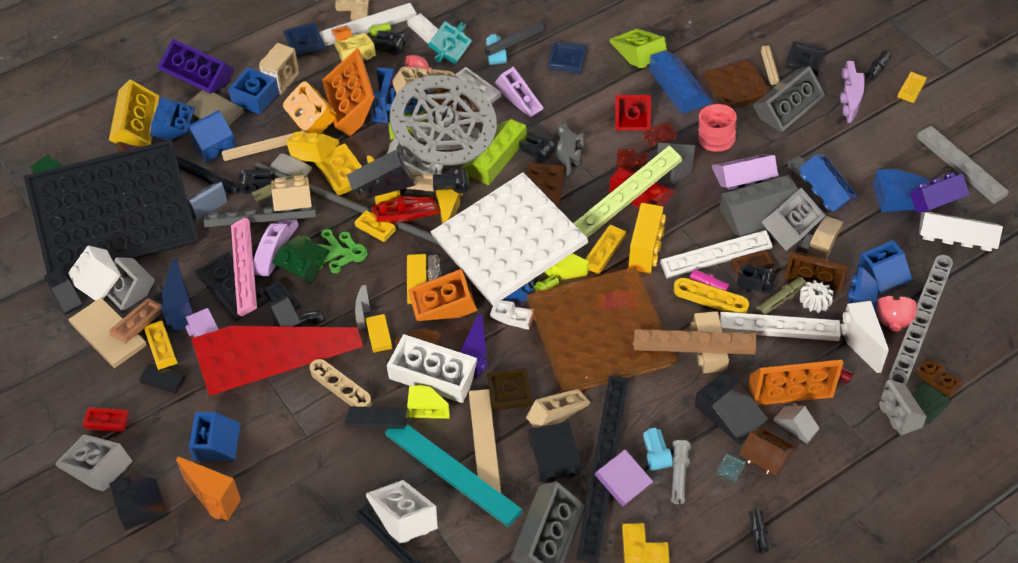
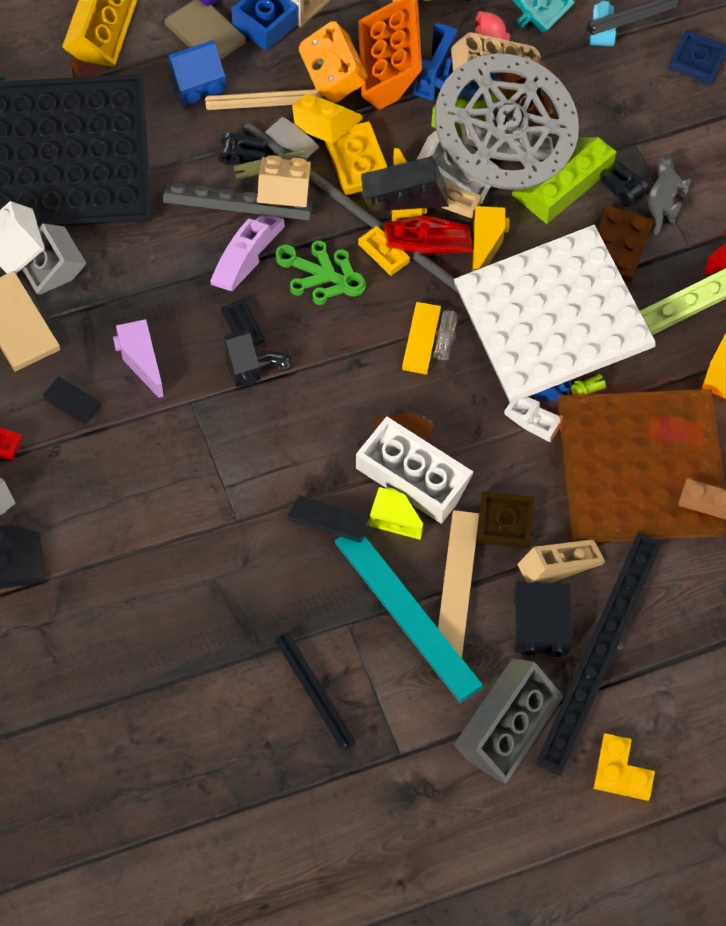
camera: 10 degrees right, 10 degrees up
(136, 320) = (53, 315): nougat plate -> none
(160, 345) = (77, 354): yellow tile -> none
(171, 119) = (148, 35): blue slope -> none
(175, 299) = (108, 298): dark blue slope -> none
(207, 175) = (180, 126): black axle -> none
(207, 200) = (173, 163): sand blue slope -> none
(213, 489) = (109, 569): orange slope -> none
(214, 437) = (121, 497): blue slope -> none
(220, 280) = (182, 293): black tile -> none
(243, 267) = (202, 271): bright pink tile -> none
(253, 353) = (188, 395): red wing -> none
(301, 258) = (278, 275): dark green slope -> none
(341, 384) = (296, 460): tan beam -> none
(362, 306) = (342, 360): light grey slope -> none
(378, 333) = (355, 402): yellow tile -> none
(403, 511) = (335, 650): white slope -> none
(443, 298) = (449, 375): orange slope -> none
(457, 181) = (503, 214): black piece -> none
(475, 346) = (475, 451): dark purple slope -> none
(487, 89) = (566, 72): white tile -> none
(518, 92) = (619, 98): lavender slope -> none
(569, 267) = (626, 371): neon yellow slope -> none
(605, 248) = (677, 353): yellow plate -> none
(623, 478) = (621, 674): tile -> none
(657, 454) = (673, 653): medium azure piece -> none
(680, 463) = (698, 671): light grey pin -> none

